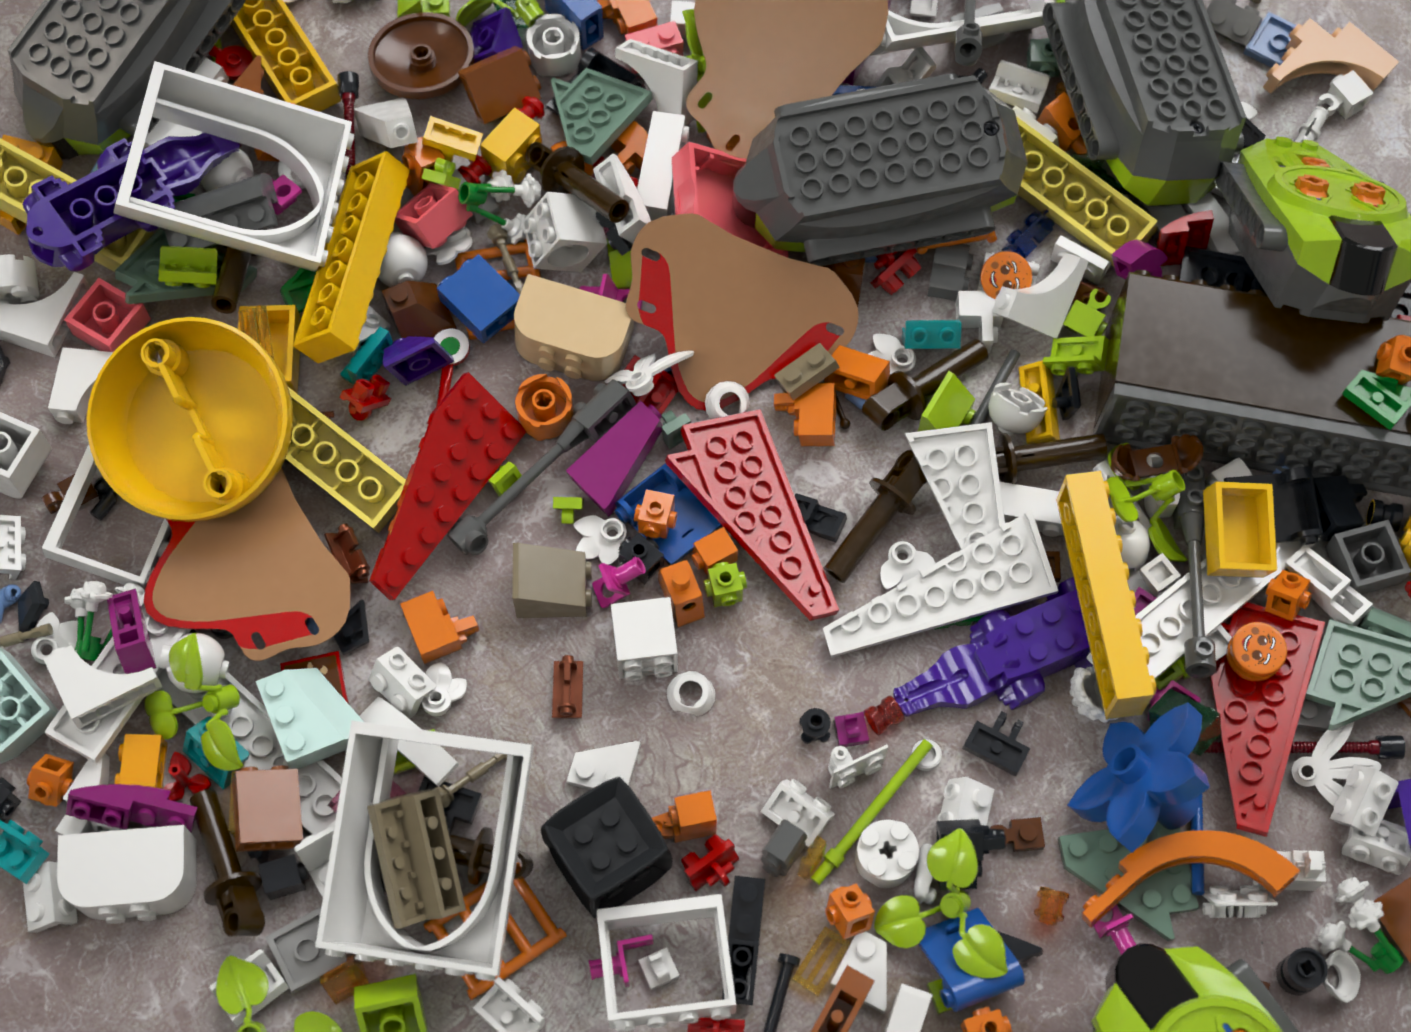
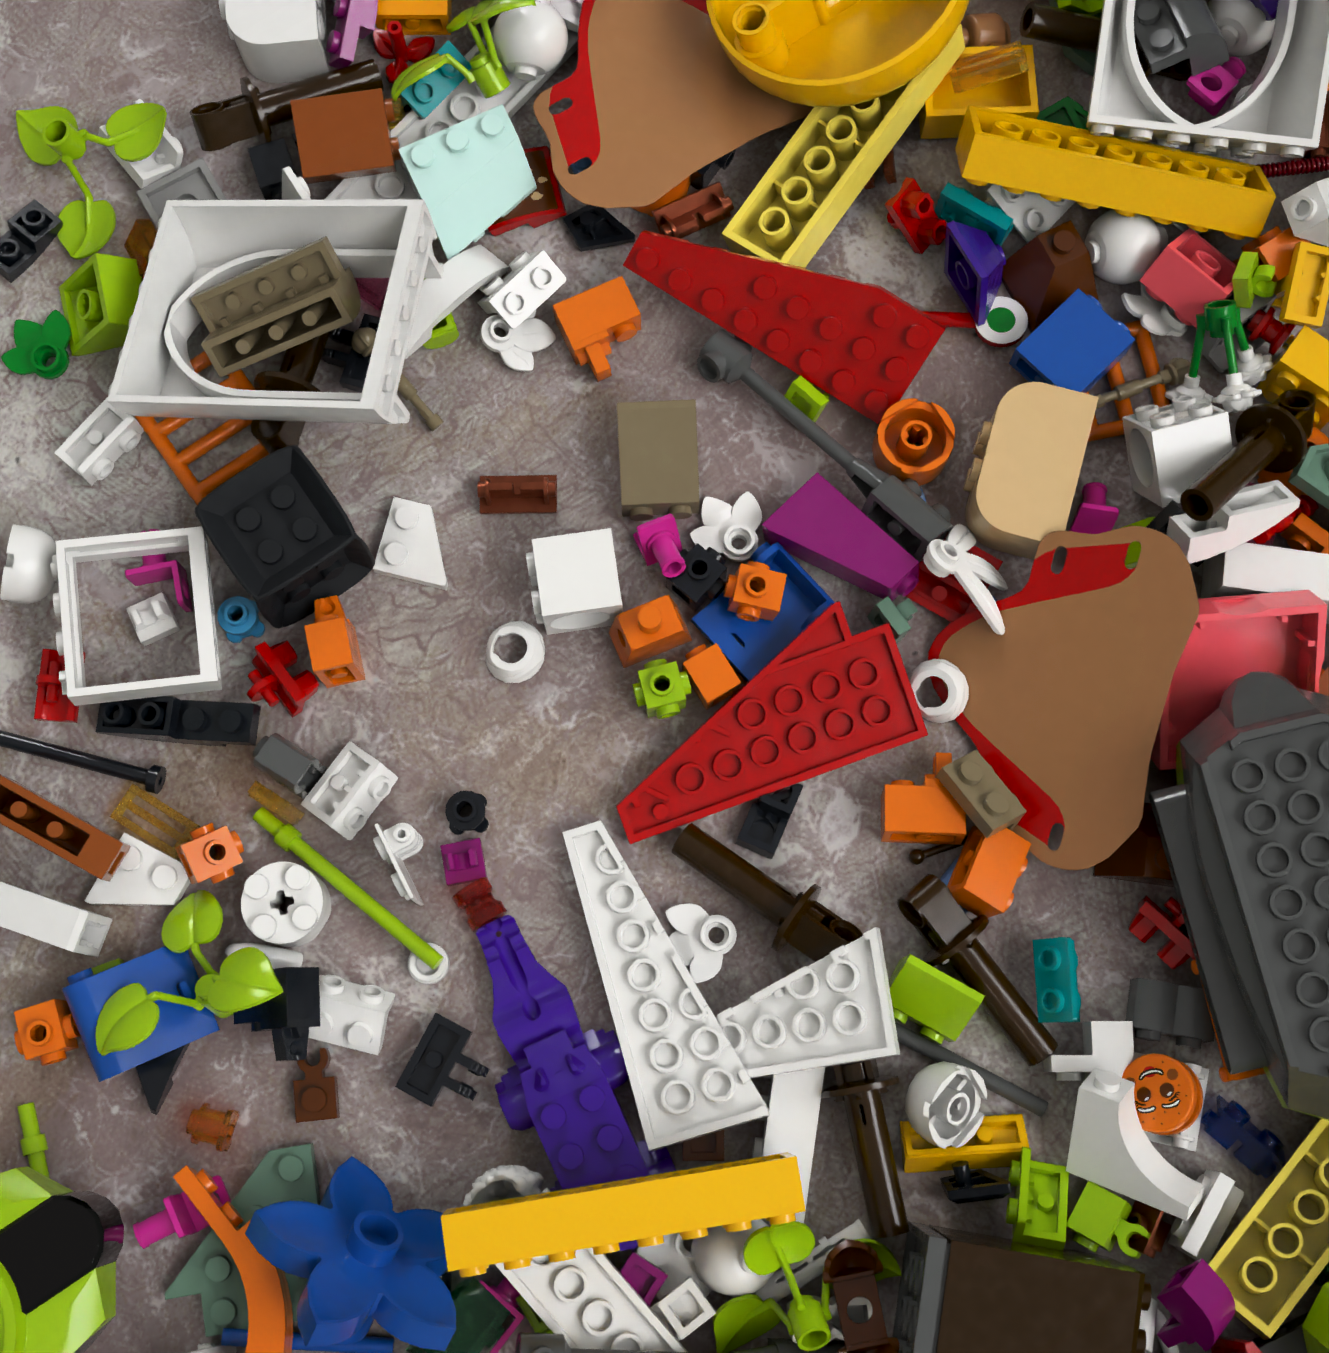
camera: 90 degrees right, 10 degrees up
(568, 505) = (771, 482): lime tile -> none
(661, 886) = (247, 625): none -> dark azure brick
(890, 349) = (1025, 916): white plate -> none

